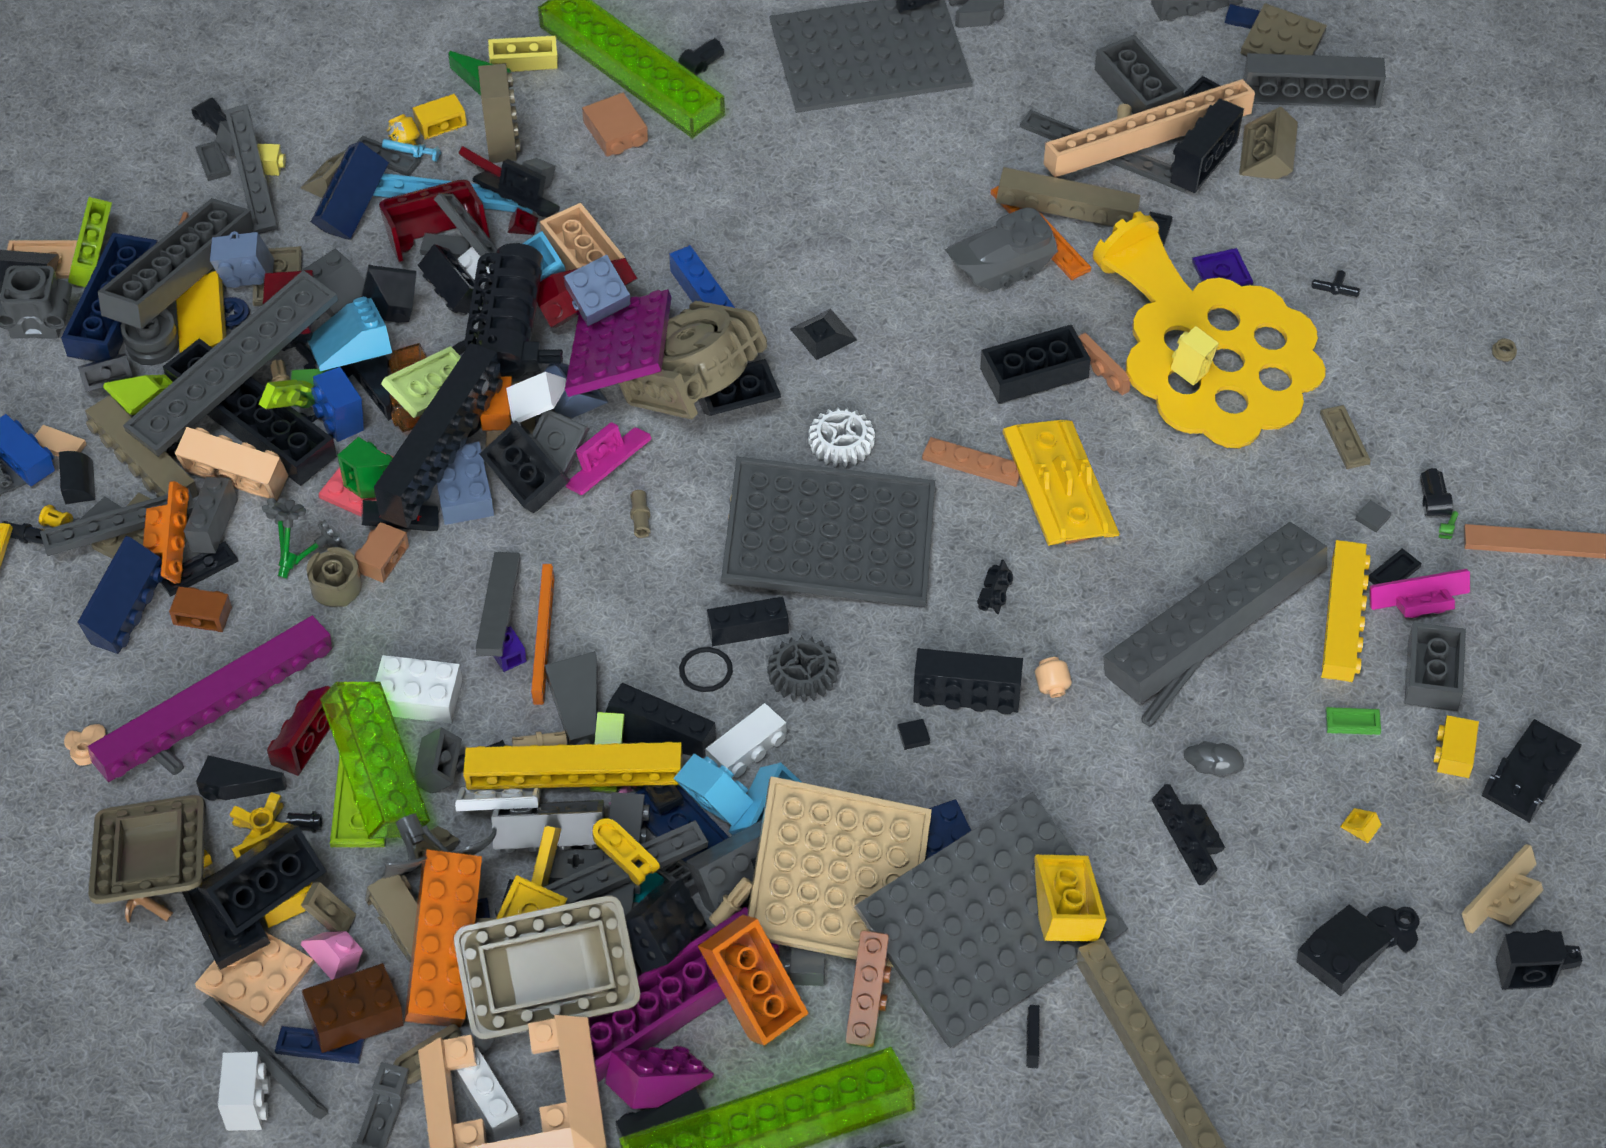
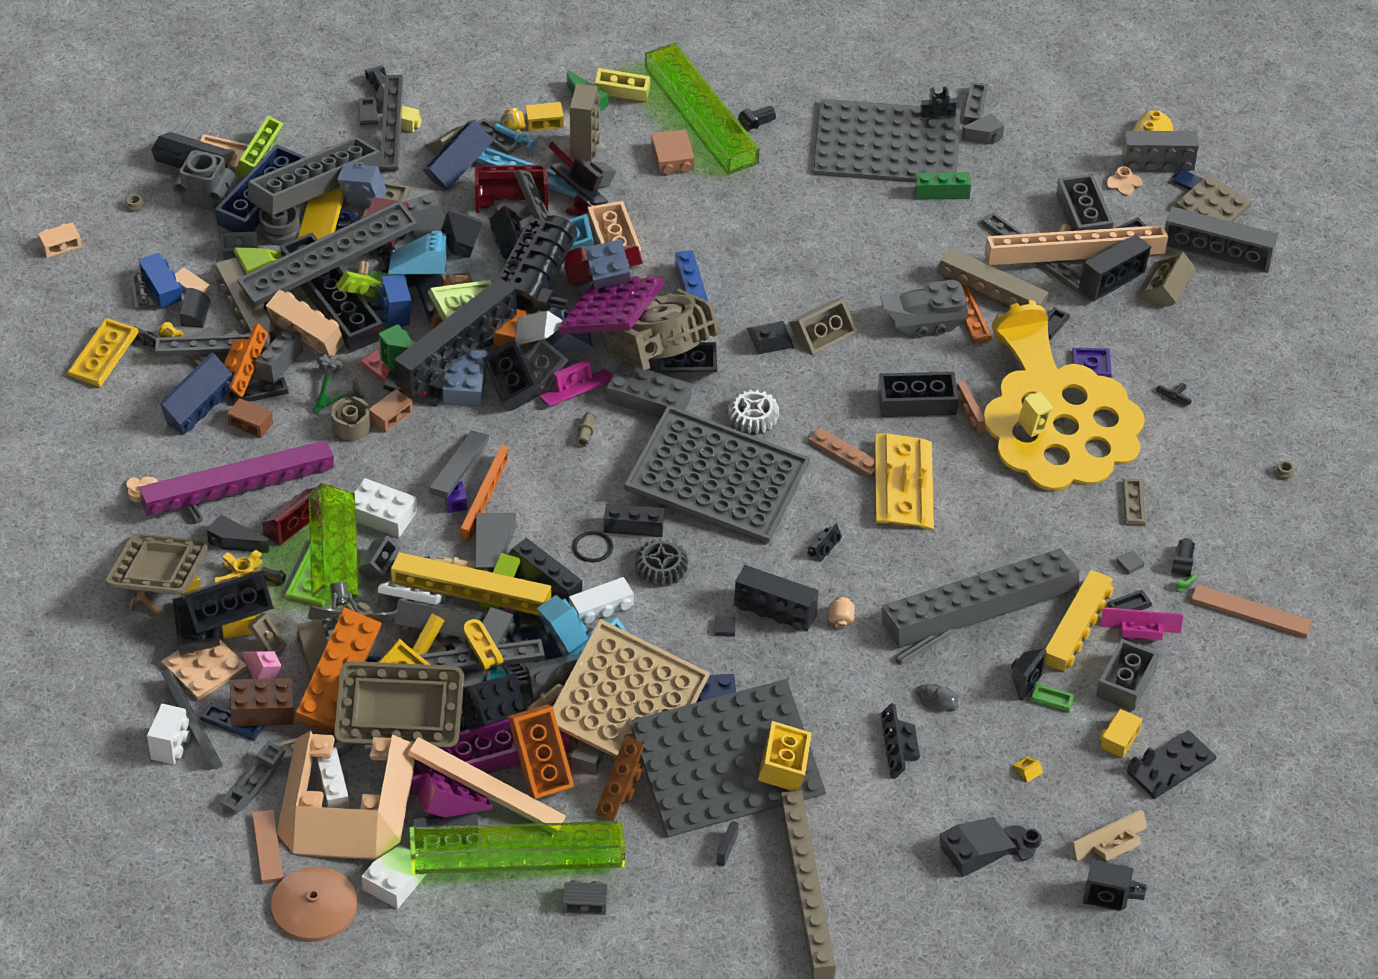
camera: 15 degrees right, 5 degrees down
(694, 1045) = (484, 783): none -> light nougat tile
(700, 444) = (647, 390): none -> dark grey brick
(885, 303) = (824, 326): none -> dark tan slope
(959, 91) = (942, 185): none -> green brick
(1168, 34) = (1124, 181): none -> light nougat plate
(1311, 693) = (1028, 671): none -> black slope

